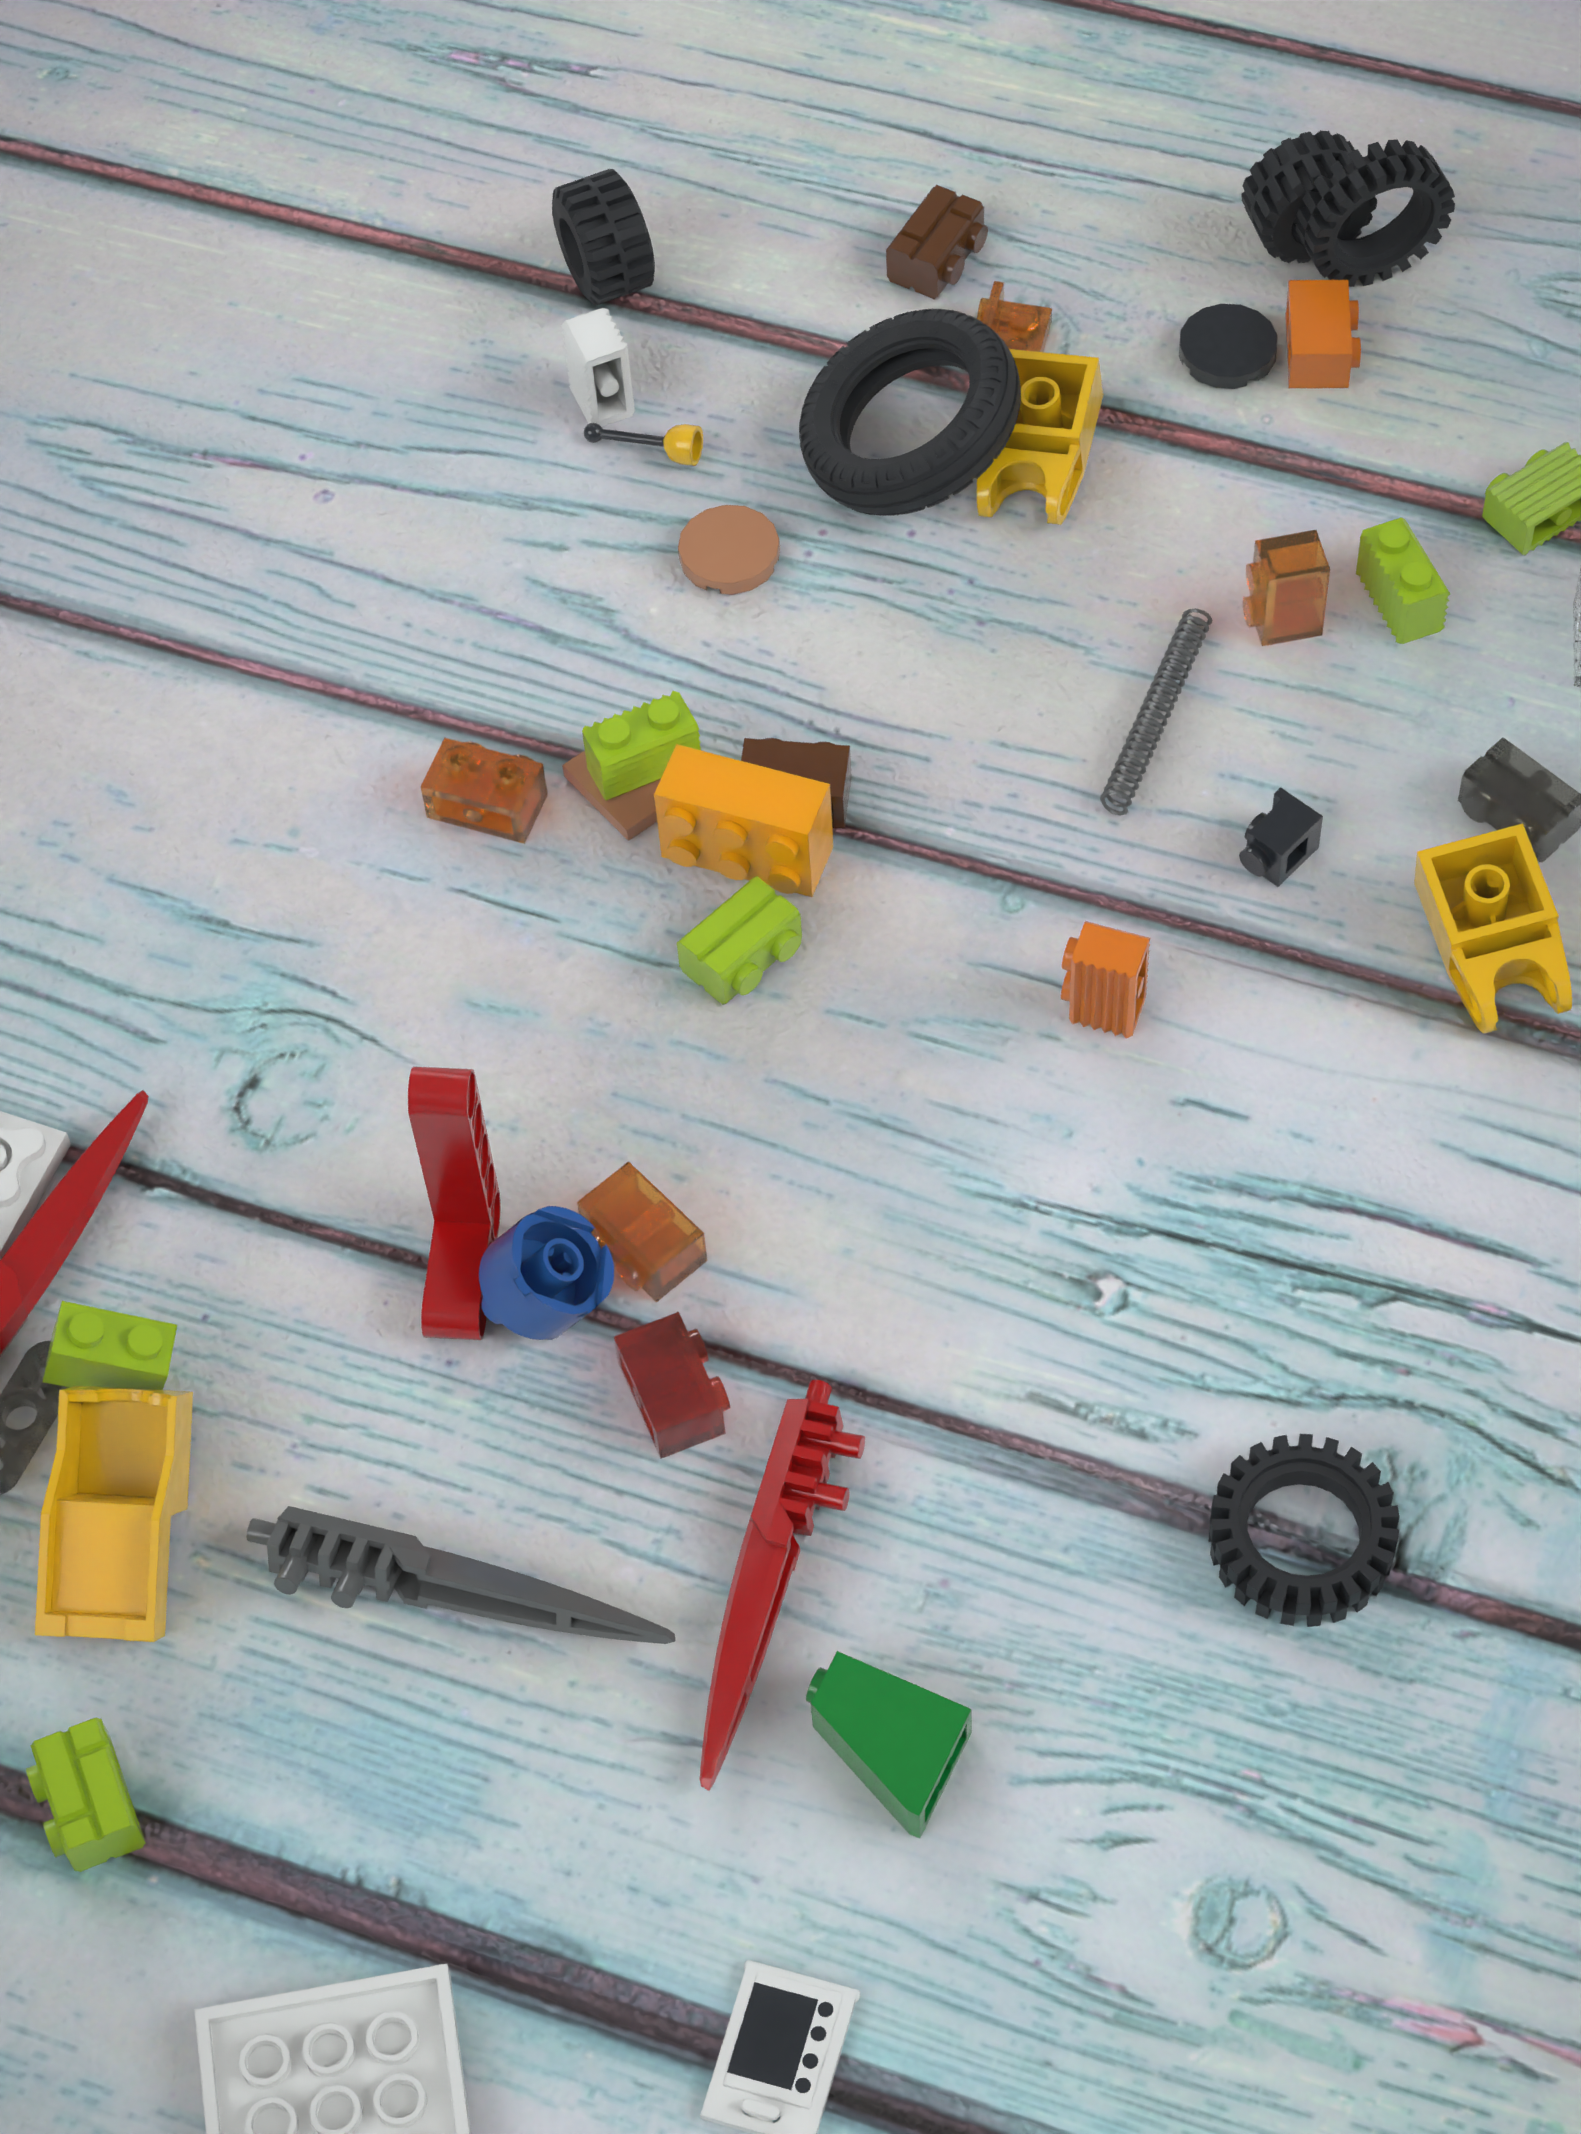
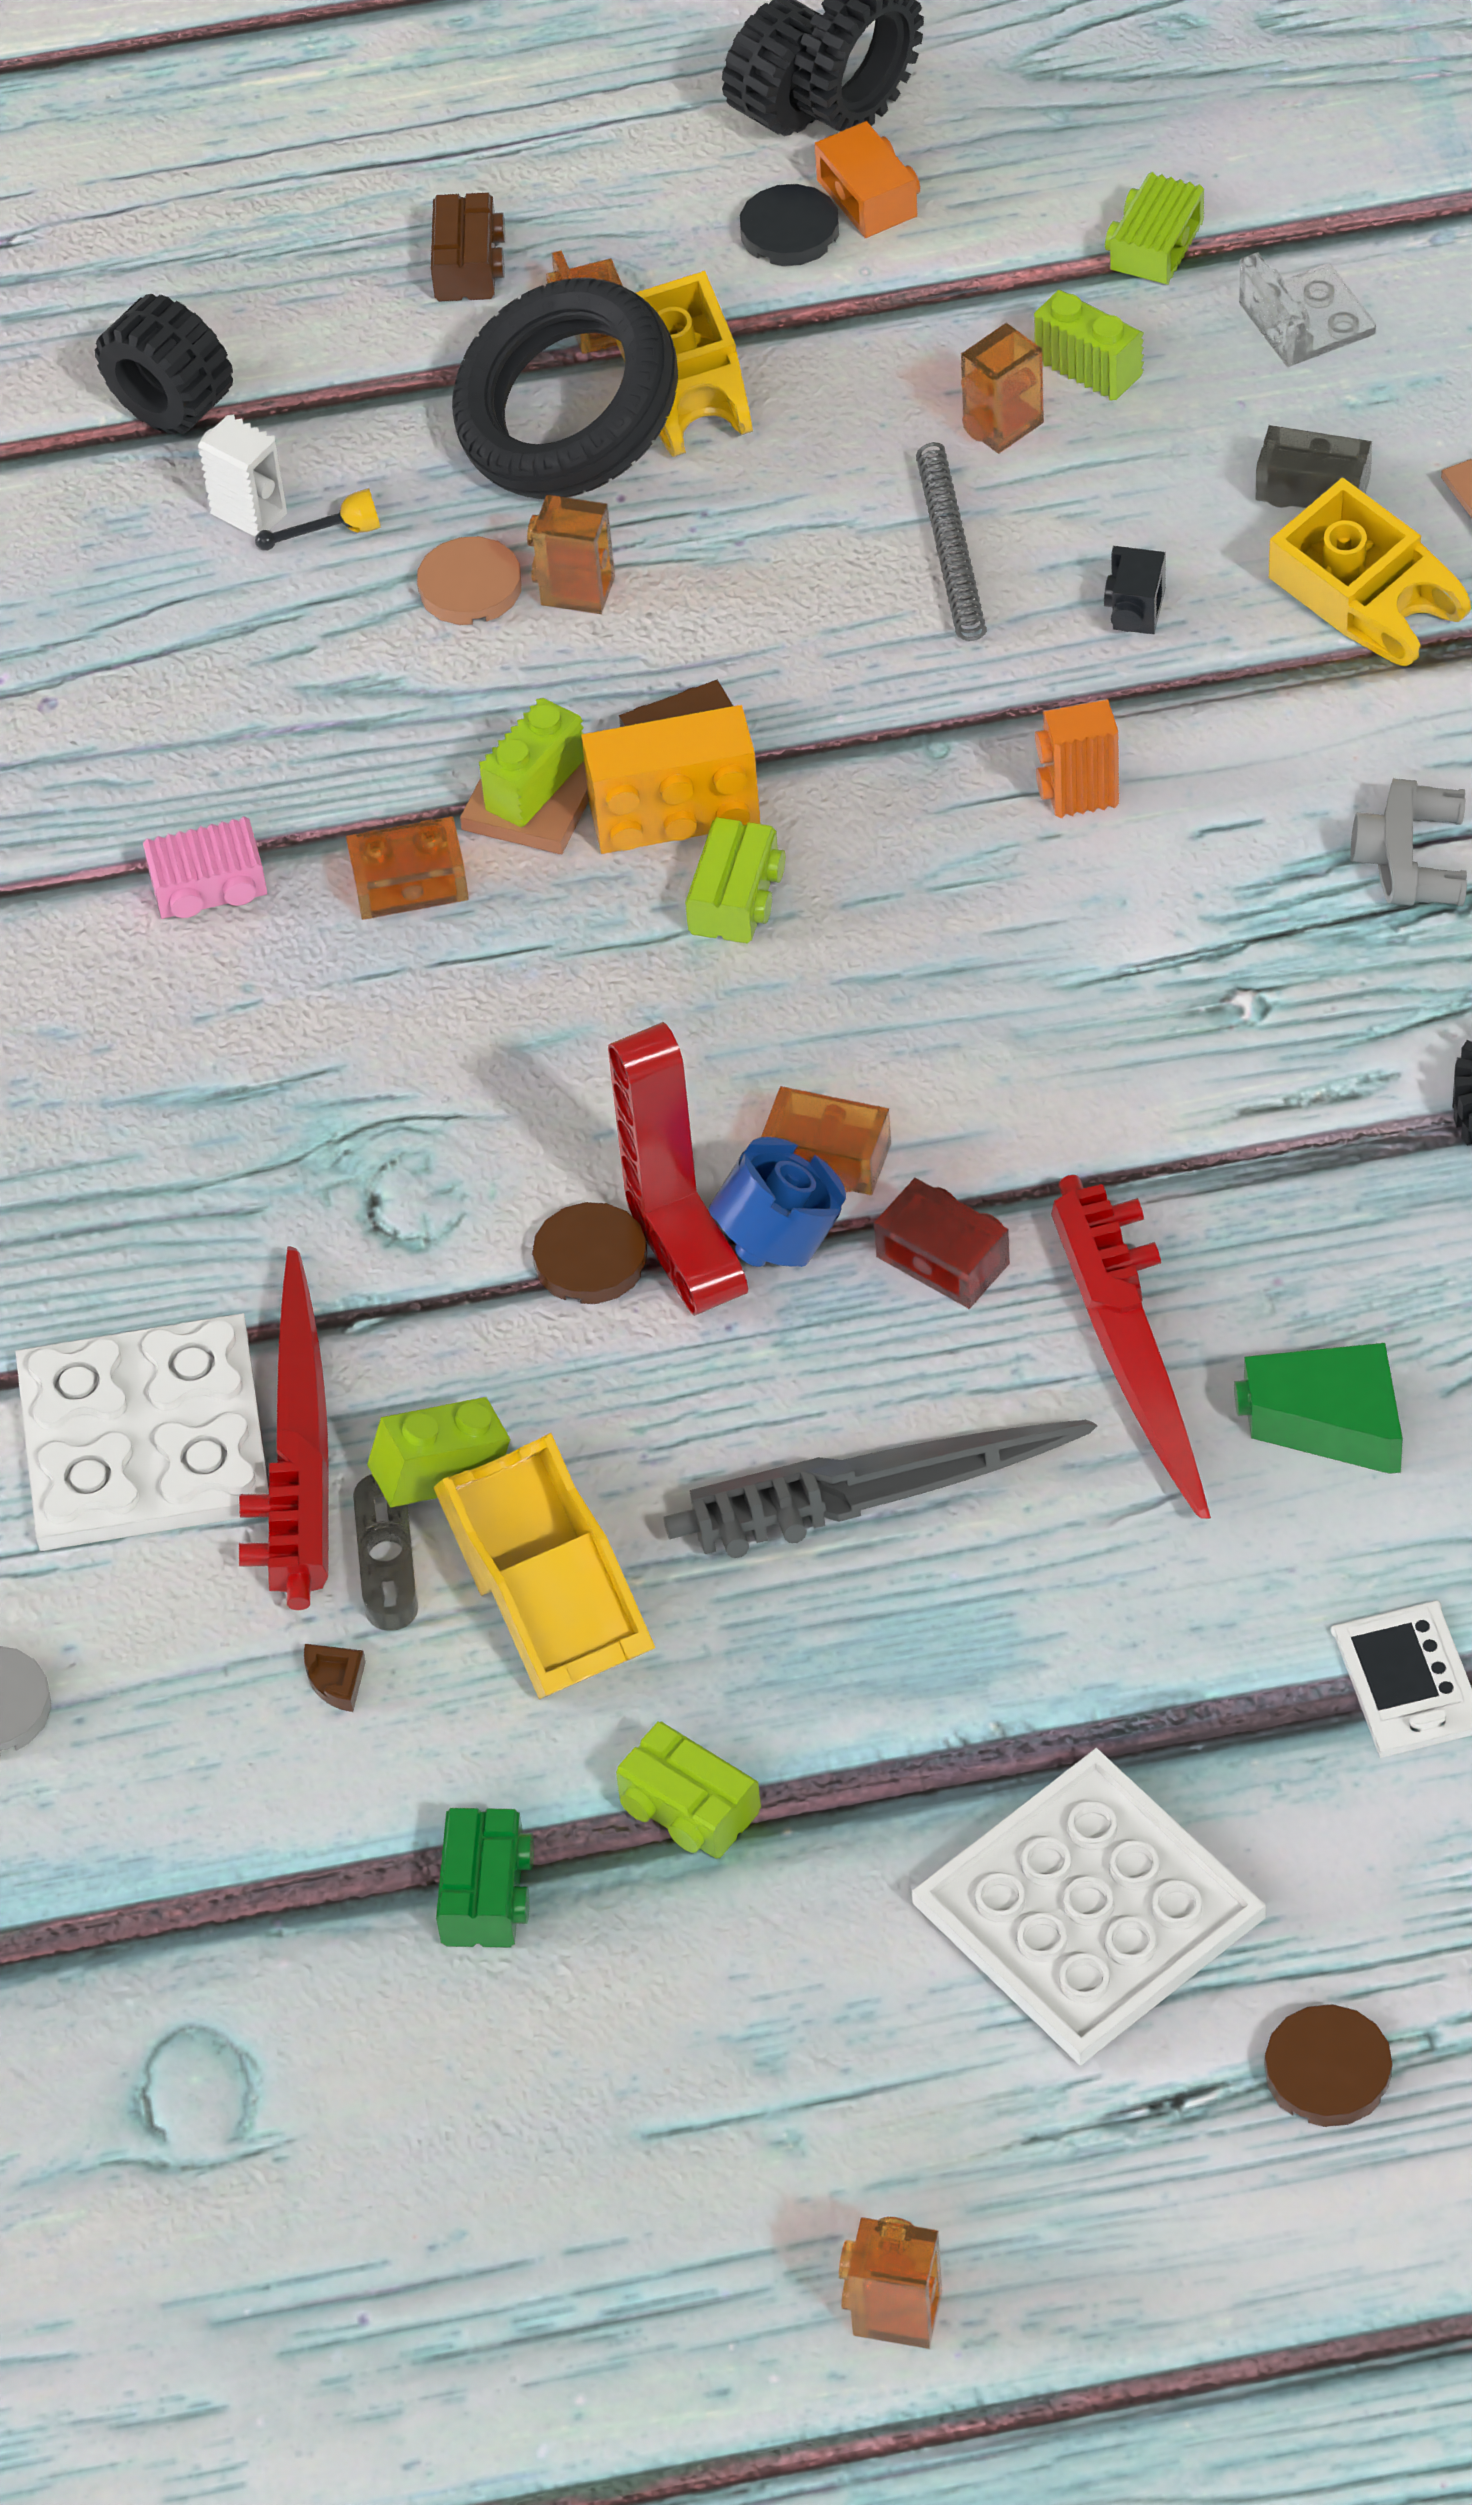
camera: 30 degrees left, 5 degrees down
(326, 708) = (205, 868): none -> bright pink brick
(380, 1229) = (589, 1252): none -> reddish brown tile
(813, 568) = (572, 554): none -> clear orange brick
(1338, 1198) = (1389, 843): none -> light grey connector

